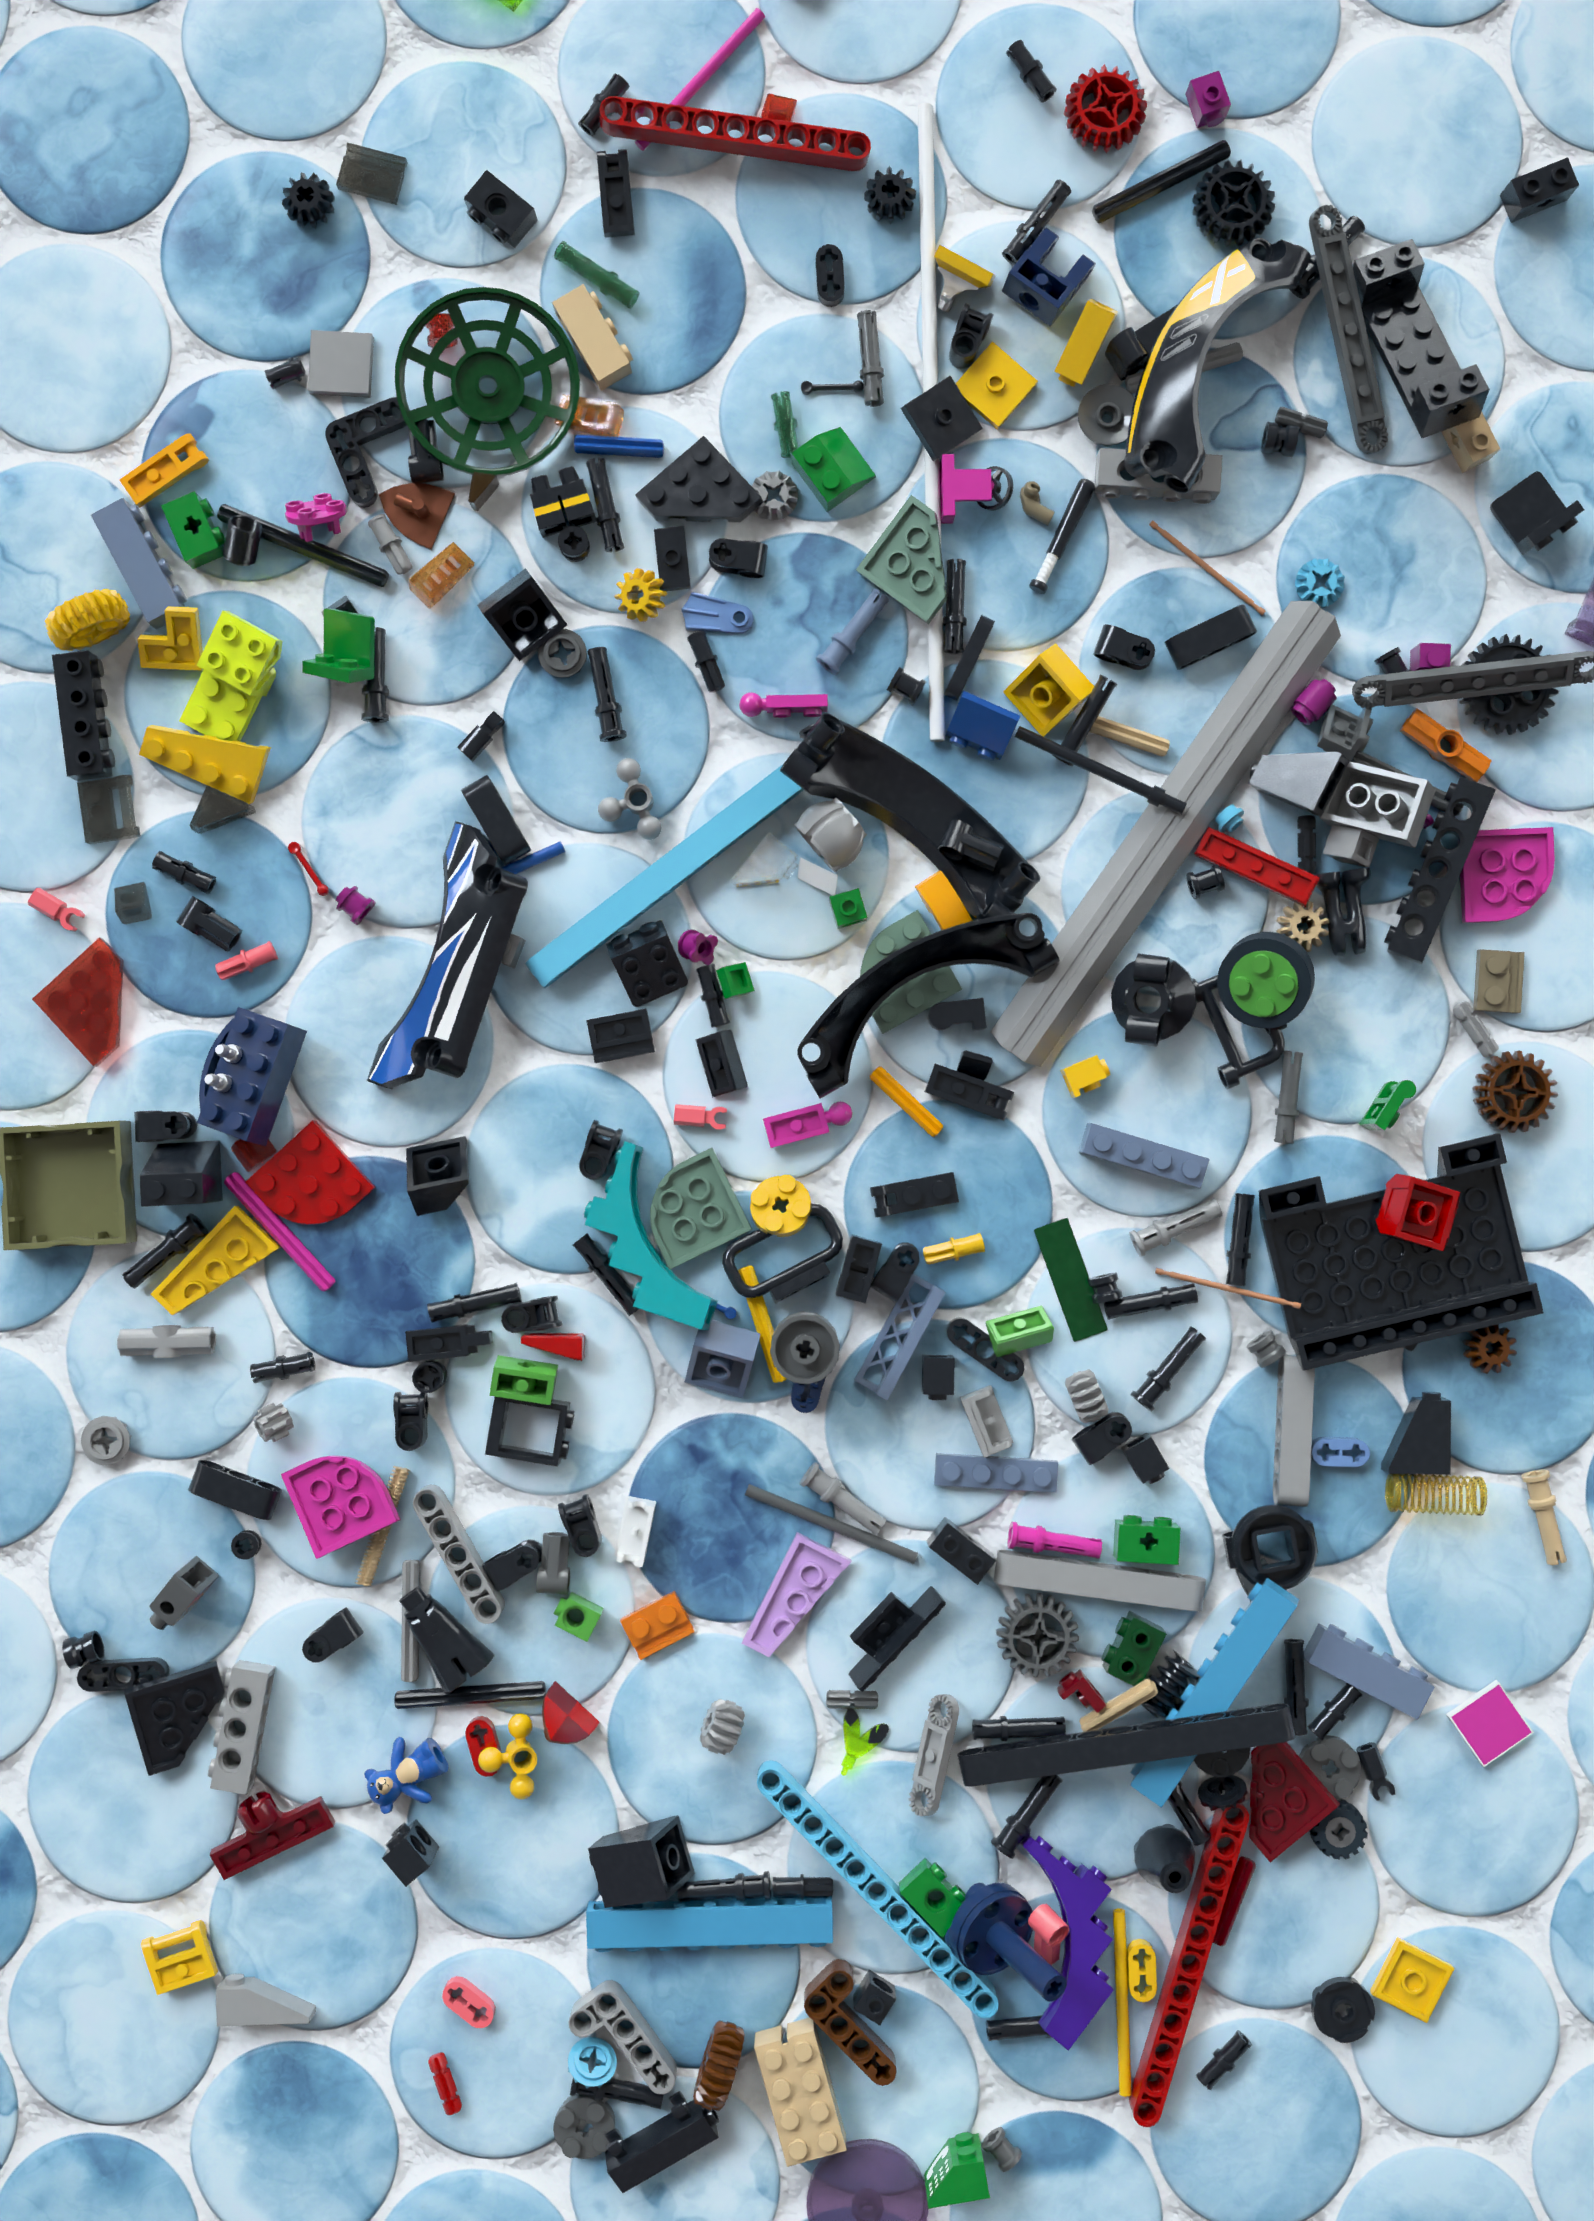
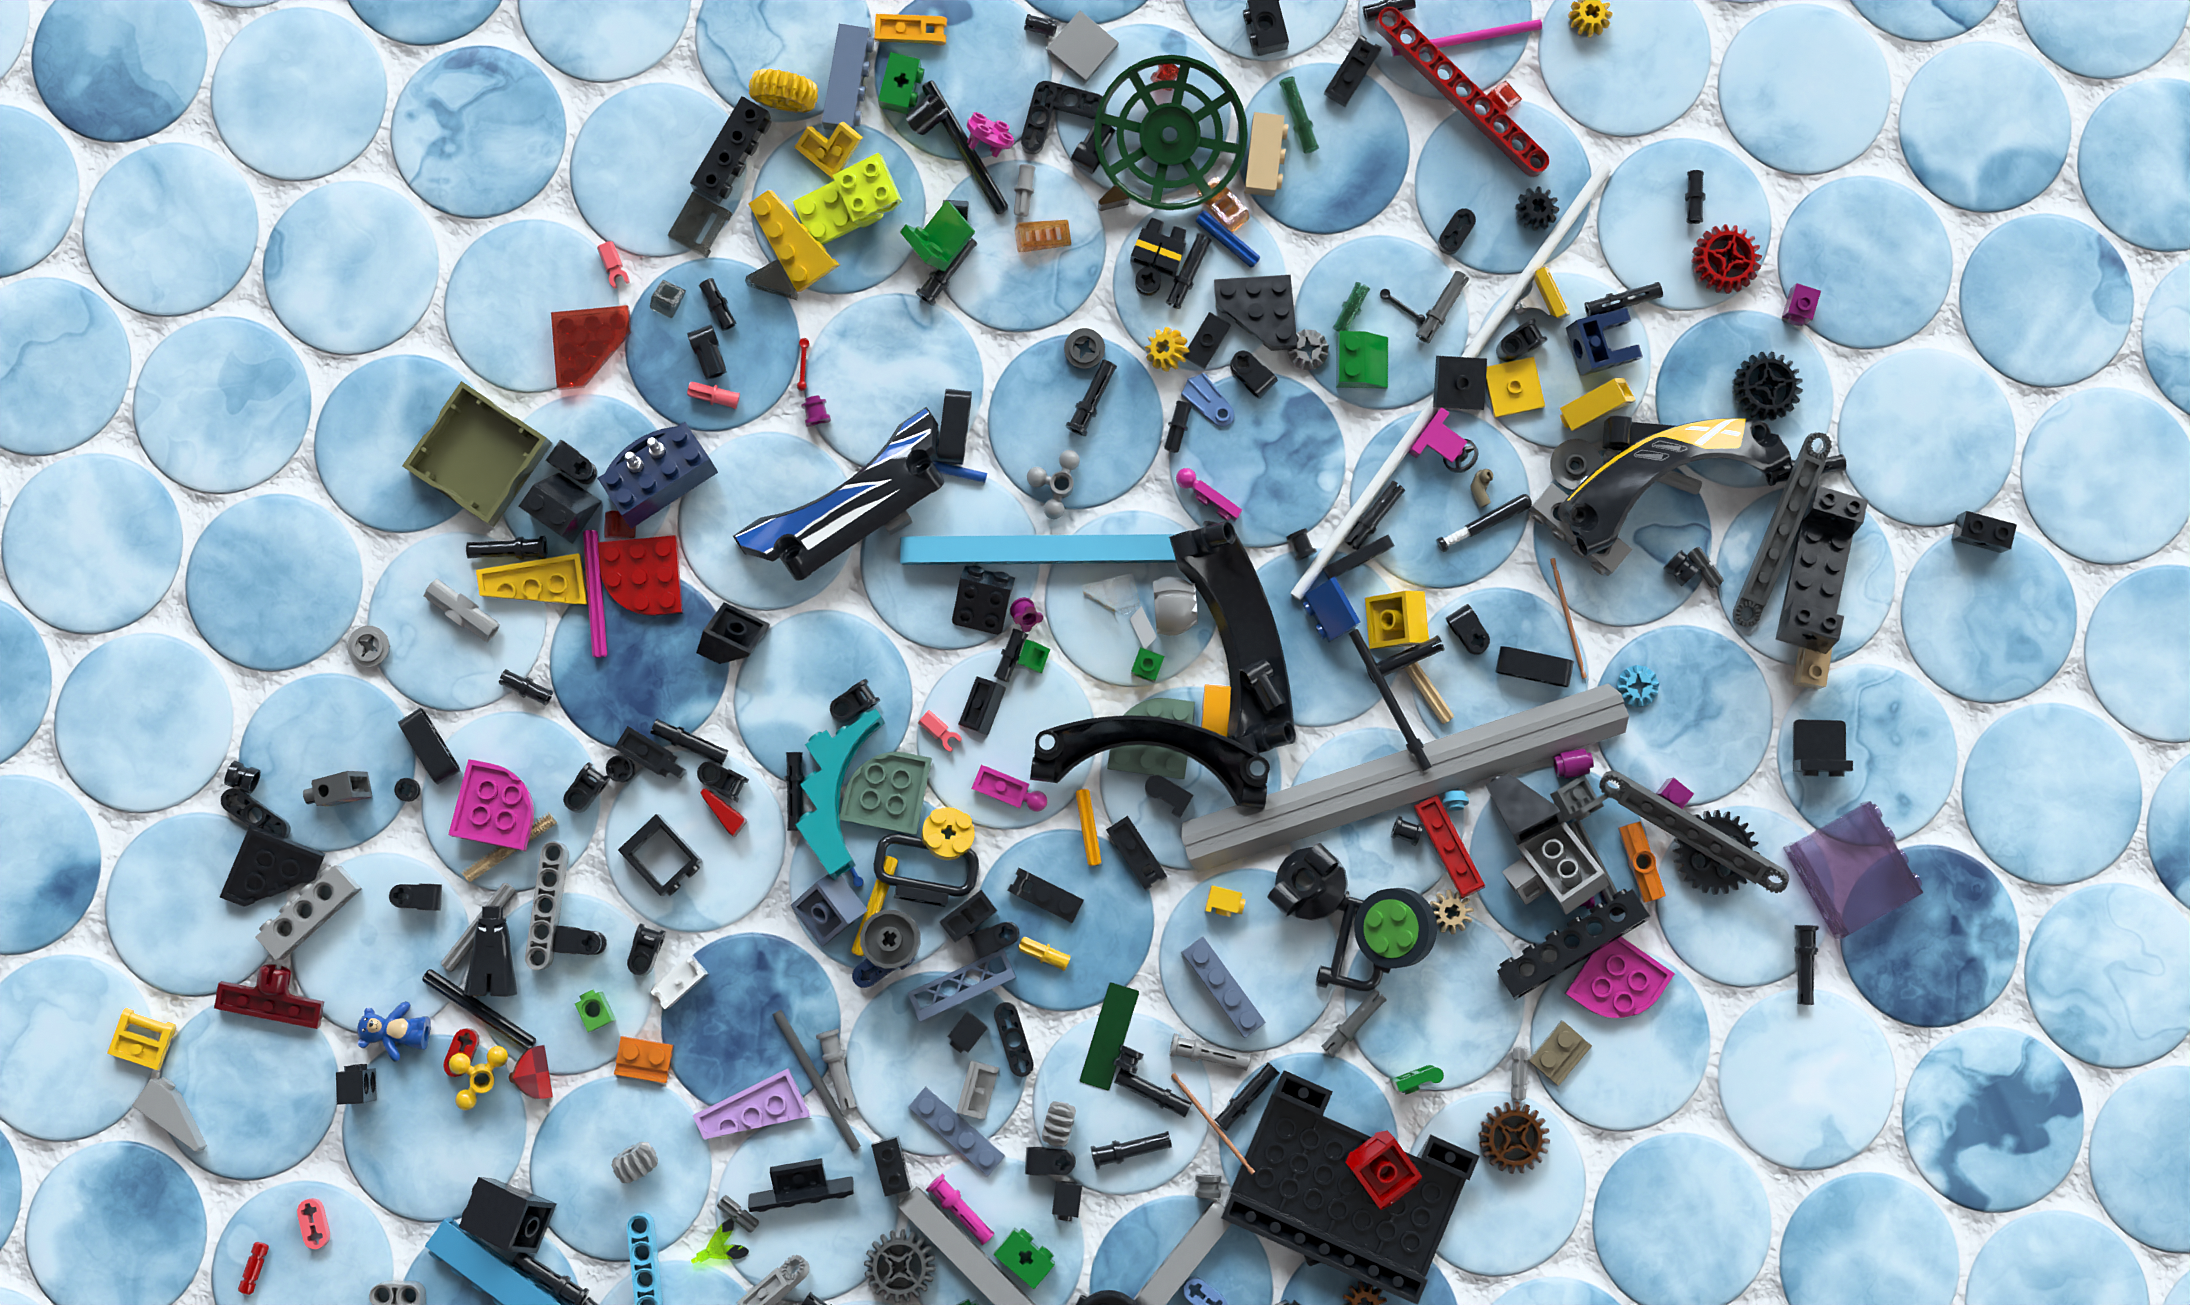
camera: 30 degrees right, 5 degrees down
(273, 1422) = (490, 719): light grey gear -> none
(417, 510) = (1059, 180): copper shield -> none
(481, 736) = (987, 363): black bar -> none
(522, 615) = (1076, 303): black slope -> none
(523, 1380) = (682, 819): bright green brick -> none
(554, 1573) = (601, 967): dark grey piece -> none
(620, 1036) = (927, 635): black plate -> none
(844, 642) = (1281, 483): sand blue pin -> none
(909, 561) = (1366, 462): sand green plate -> none
(974, 1064) = (1153, 837): black slope -> none
(1020, 1331) = (1047, 1044): bright green slope -> none
(1161, 181) = (1729, 335): black axle -> none
(1306, 843) = (1496, 858): black axle -> none
(1354, 923) = (1488, 936): black piece -> none
(1391, 662) = (1646, 777): black bush -> none

